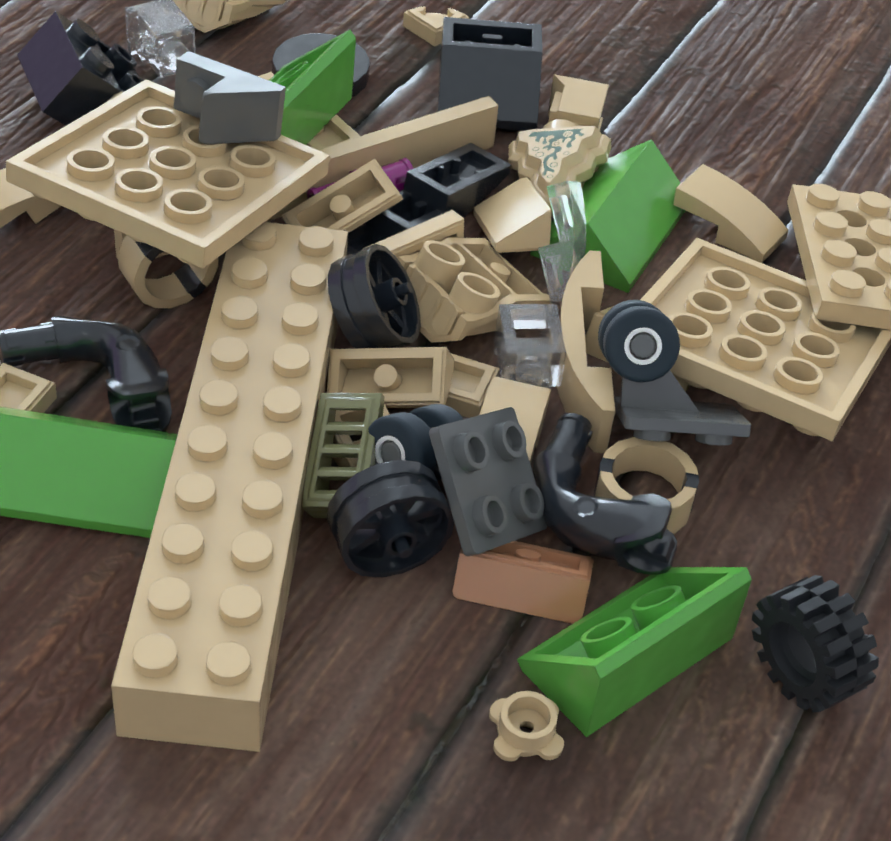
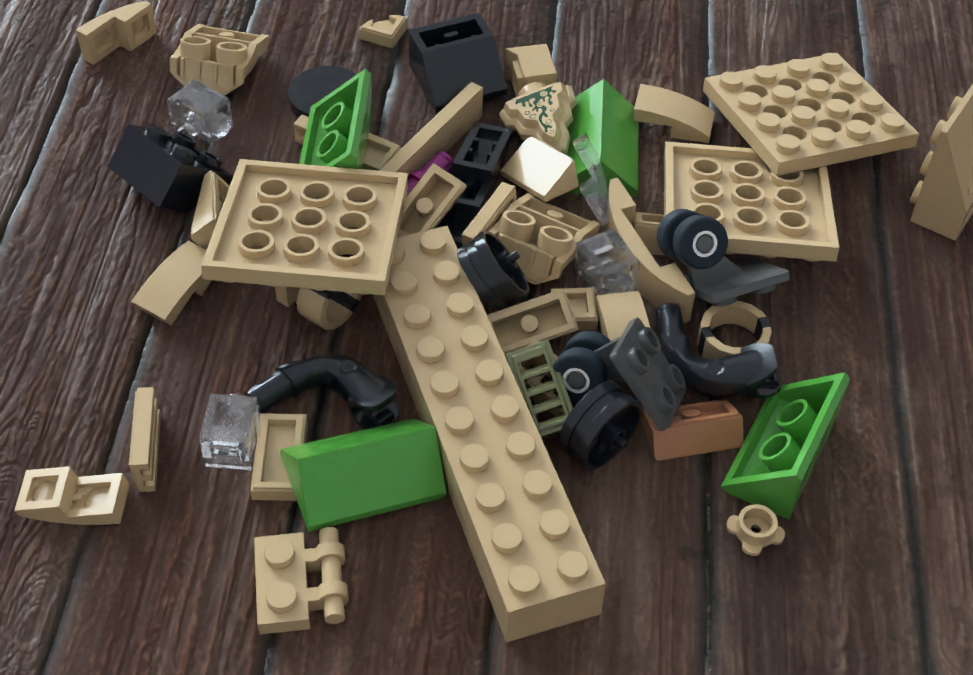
camera: 20 degrees left, 5 degrees up
(228, 101) = (327, 157): dark grey slope -> none
(815, 643) = (921, 404): black tyre -> none

